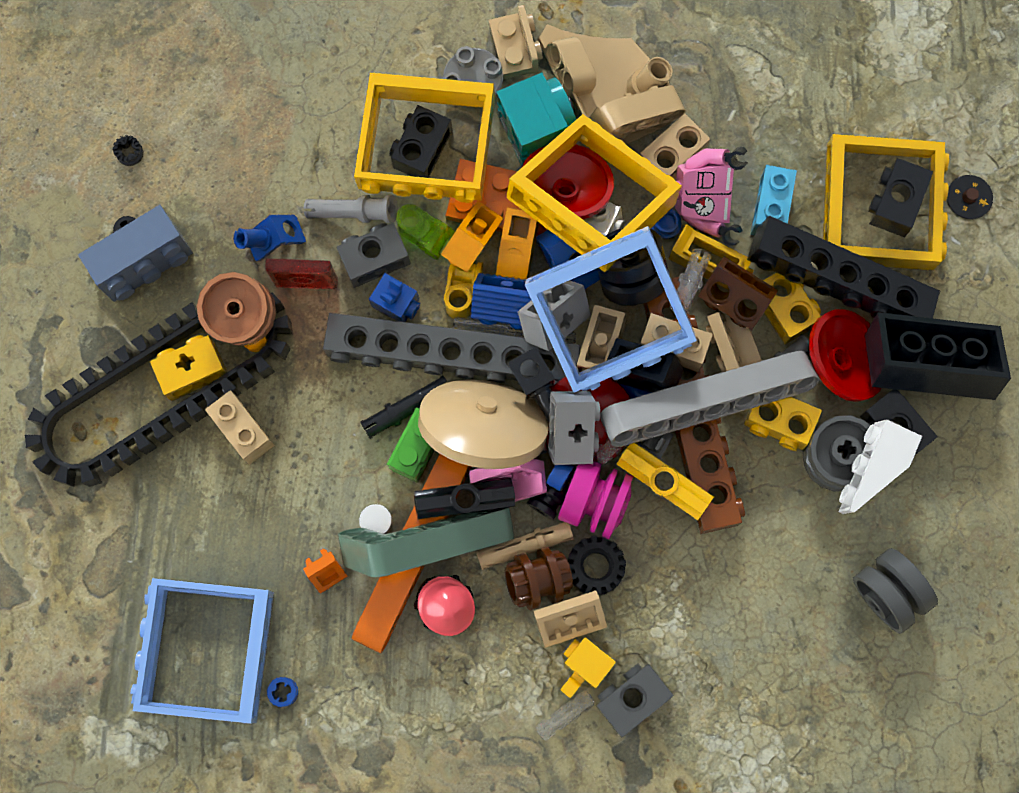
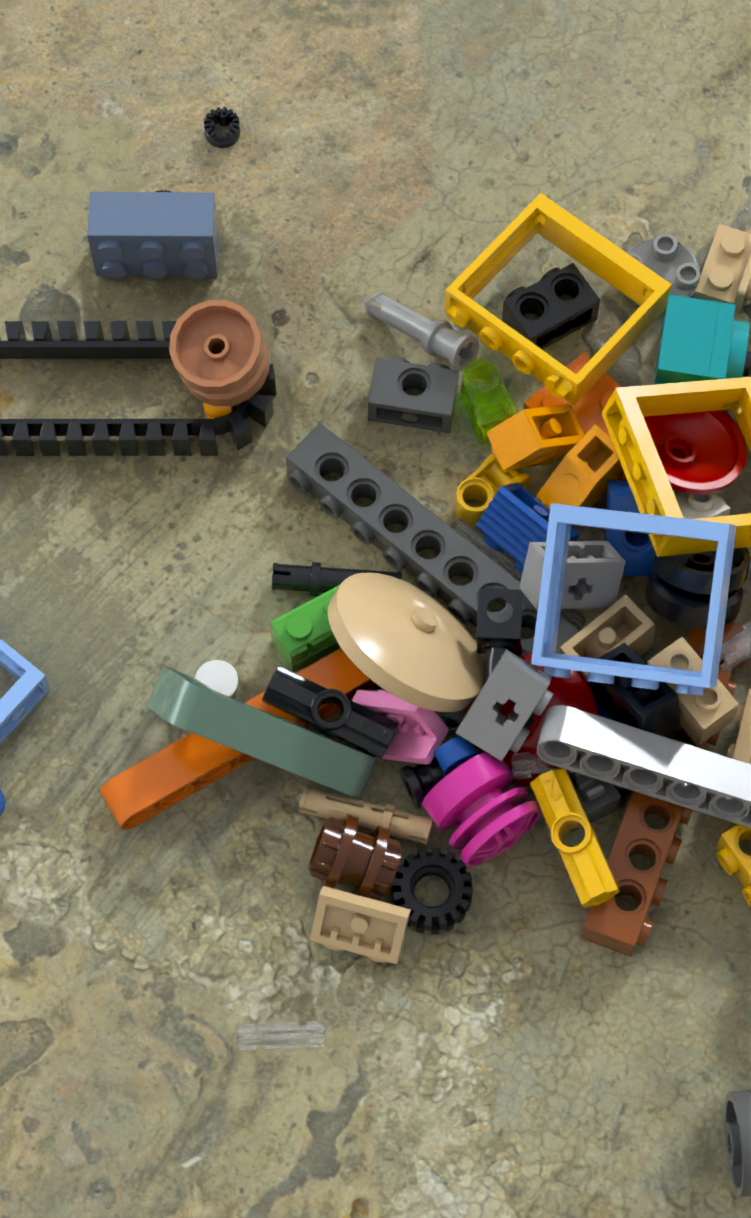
camera: 30 degrees right, 10 degrees down
(171, 366) = (106, 384): yellow brick -> none
(239, 427) = (137, 486): tan brick -> none
(269, 235) = (311, 304): blue bracket -> none
(301, 273) = (319, 363): clear red tile -> none
(324, 571) = (121, 699): orange tile -> none
(395, 299) = (404, 455): blue brick -> none
(445, 605) = (230, 822): coral hair -> none
(588, 665) = (345, 993): yellow brick -> none
(653, 695) = (396, 1080): dark grey brick -> none

